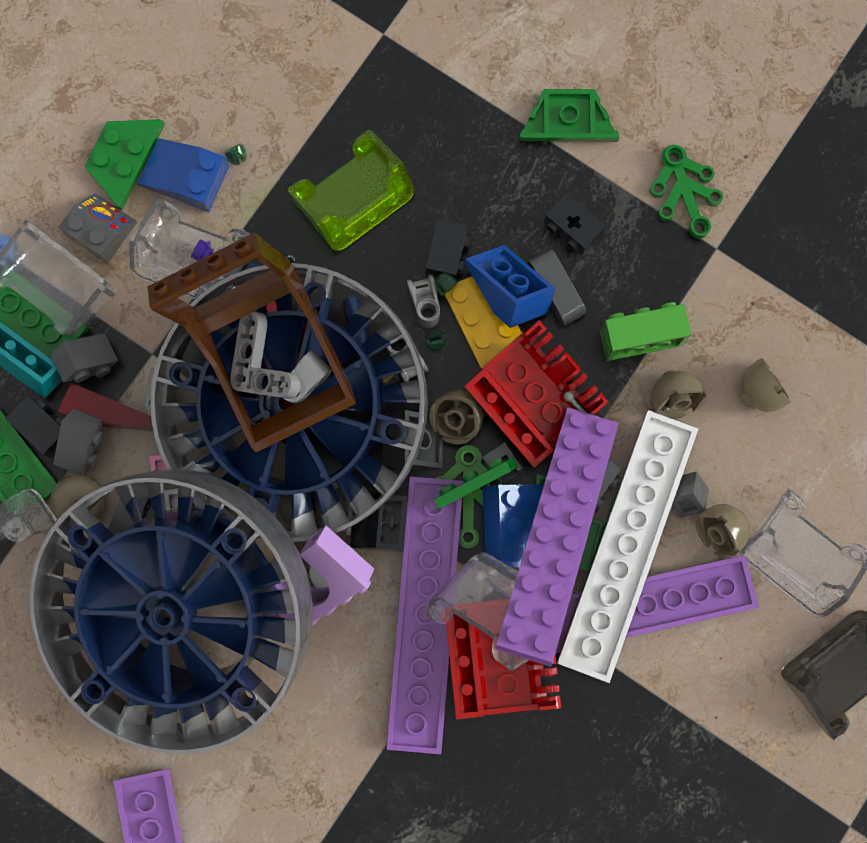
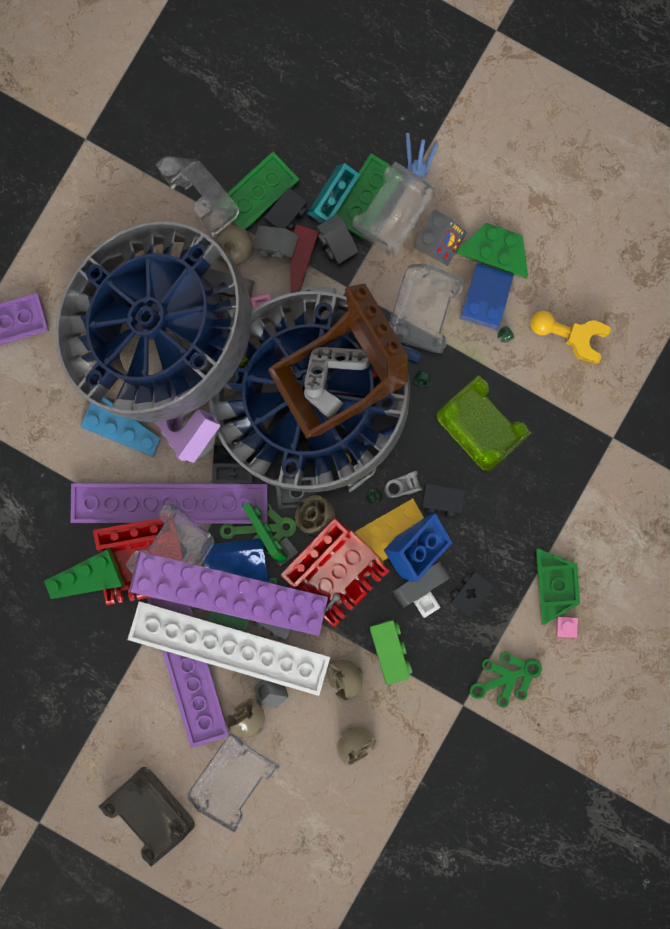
camera: 80 degrees right, 5 degrees up
(201, 250) = (426, 317): dark purple plate -> none
(246, 64) = (576, 336): none -> yellow piece
(316, 677) = (120, 429): none -> dark azure wing
(444, 283) = (416, 499): clear green hinge -> none
(518, 730) = (88, 576): none -> green wing
(585, 282) = (426, 604): none -> white tile
(623, 110) = (567, 627): none -> bright pink plate

